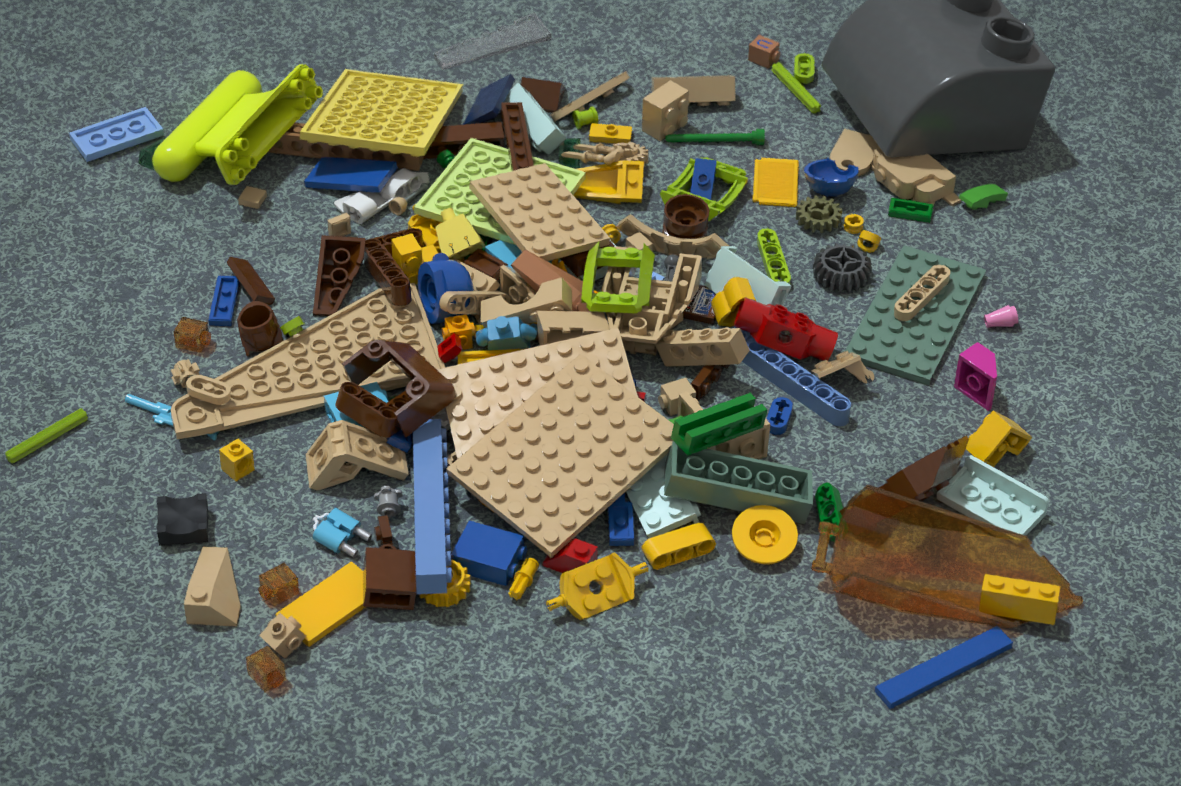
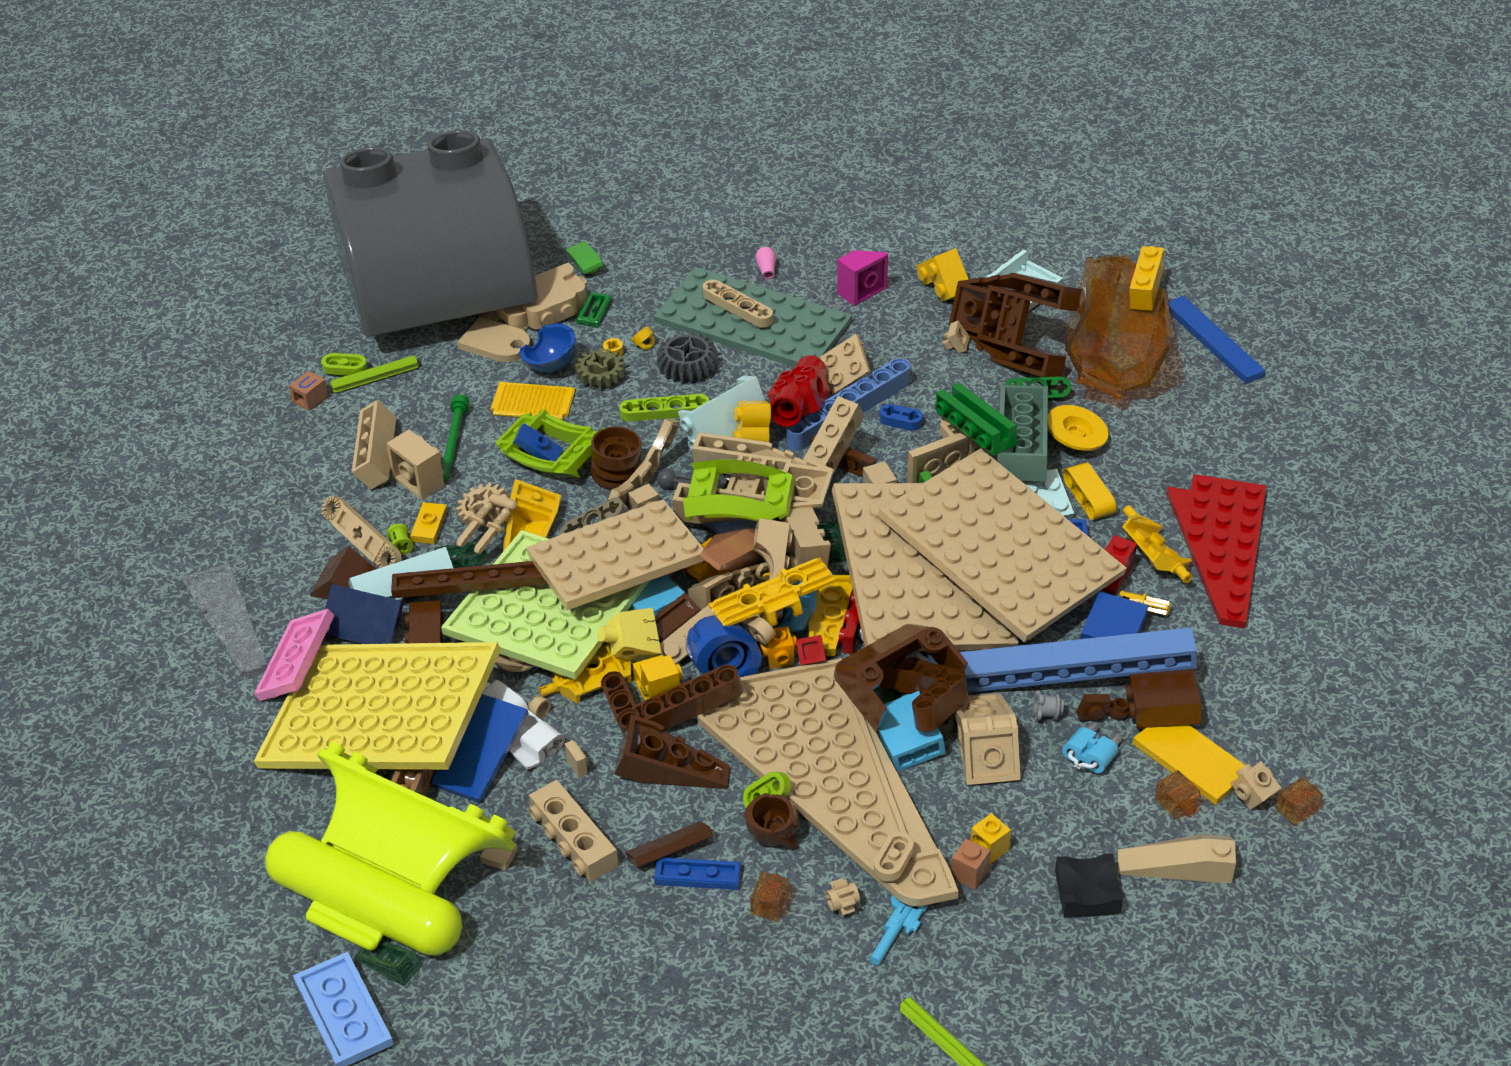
camera: 85 degrees left, 0 degrees up
(208, 445) = (970, 863): none -> nougat brick
(266, 229) = (573, 831): none -> tan brick
(455, 75) = (294, 655): none -> bright pink plate
(482, 298) = (773, 594): none -> yellow piece
(605, 216) = (606, 508): none -> dark tan beam
(635, 648) = (1222, 535): none -> red wing
(903, 453) = (956, 338): none -> tan tile

